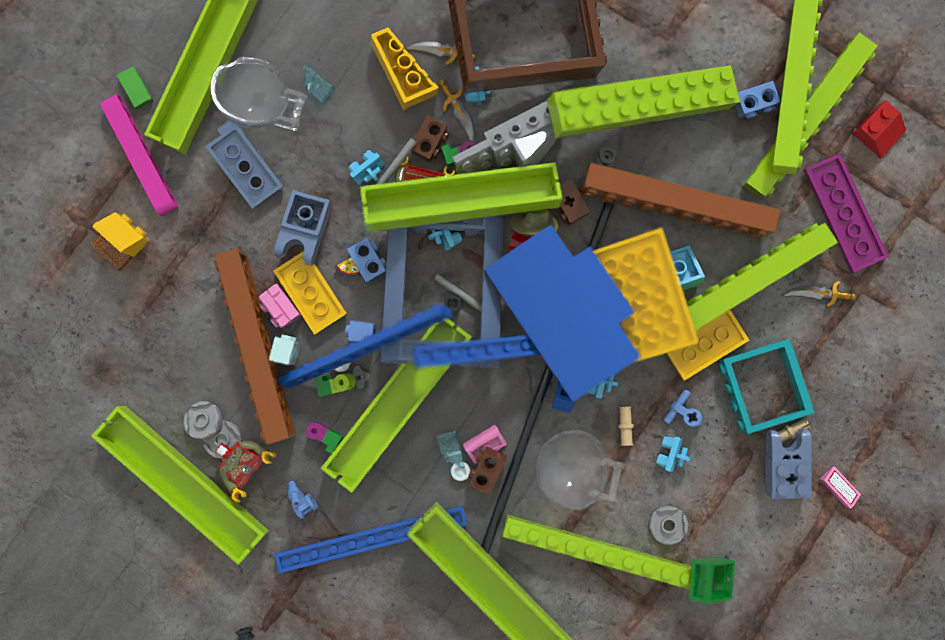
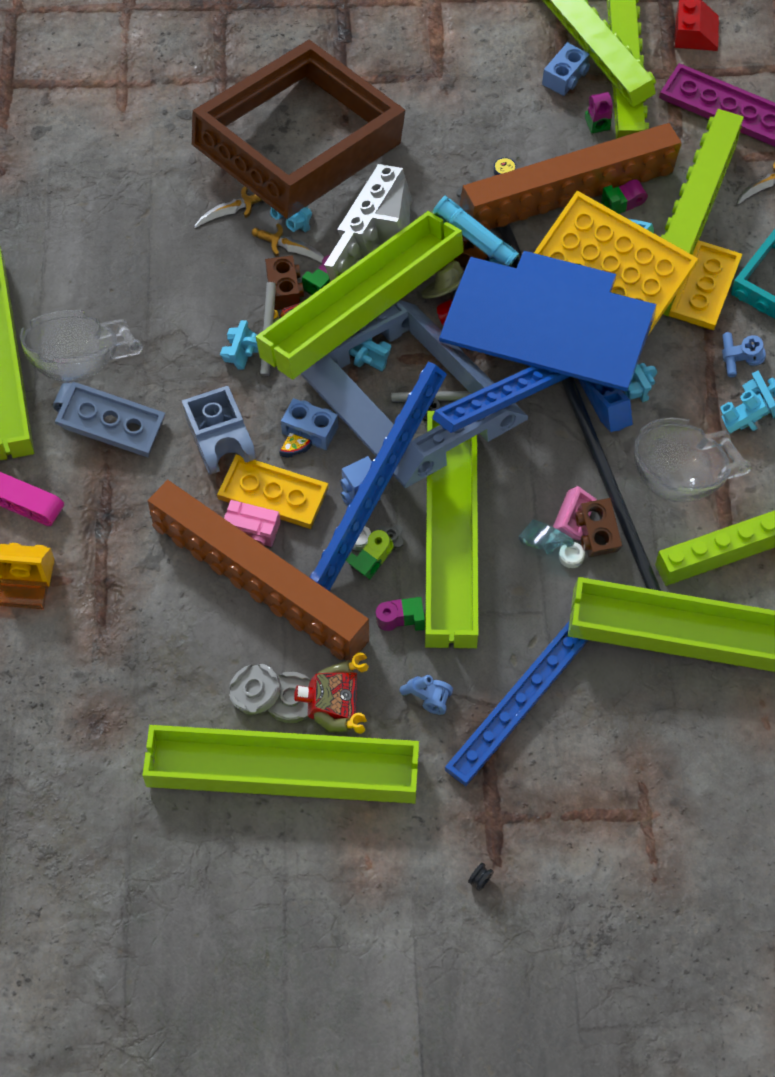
camera: 40 degrees left, 25 degrees down
(285, 350) = (294, 549): light aqua brick -> none
(317, 86) = (130, 310): clear light blue slope -> none
(404, 74) = (206, 240): yellow wedge -> none
(584, 227) = (475, 232): none -> medium azure piece
(626, 426) = (697, 402): tan pin -> none
(642, 101) = (463, 119): lime brick -> none
(647, 460) = (744, 414): none -> medium azure hips
(648, 152) = (503, 165): none -> light yellow tile
(708, 235) = (624, 197): none -> leg
(746, 156) = (599, 109): none -> magenta leg

